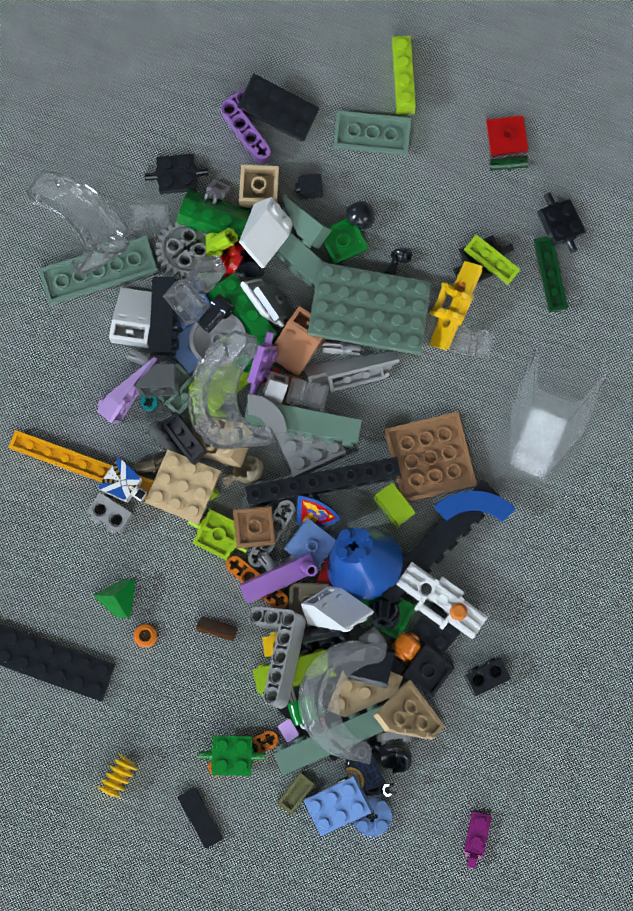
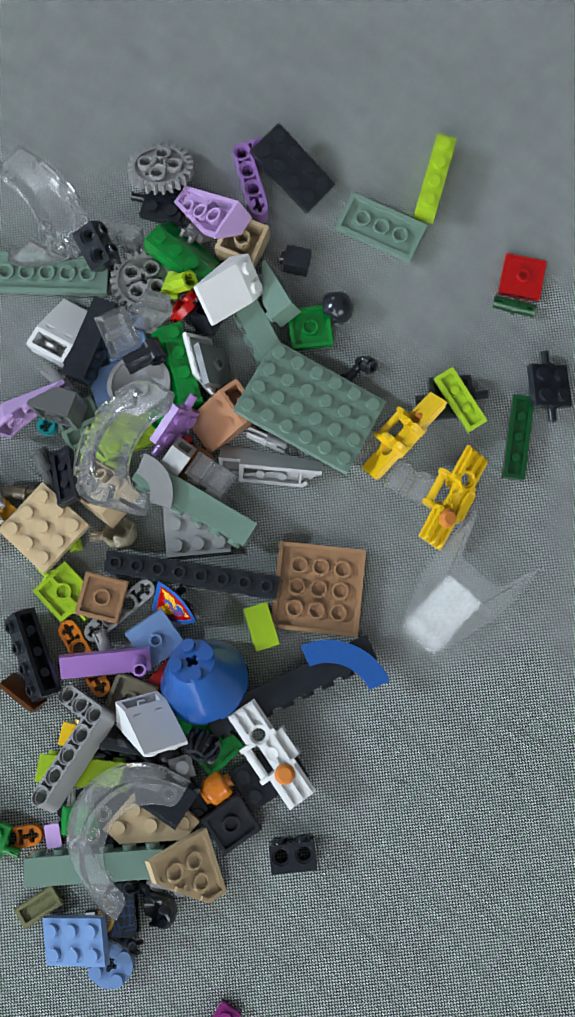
camera: 25 degrees right, 0 degrees up
(135, 237) = (93, 248): none -> black brick
(163, 145) = (160, 168): none -> light grey gear
(214, 593) = (32, 654): none -> black brick
(227, 173) = (213, 213): none -> lavender wedge
(519, 346) = (457, 503): none -> yellow piece

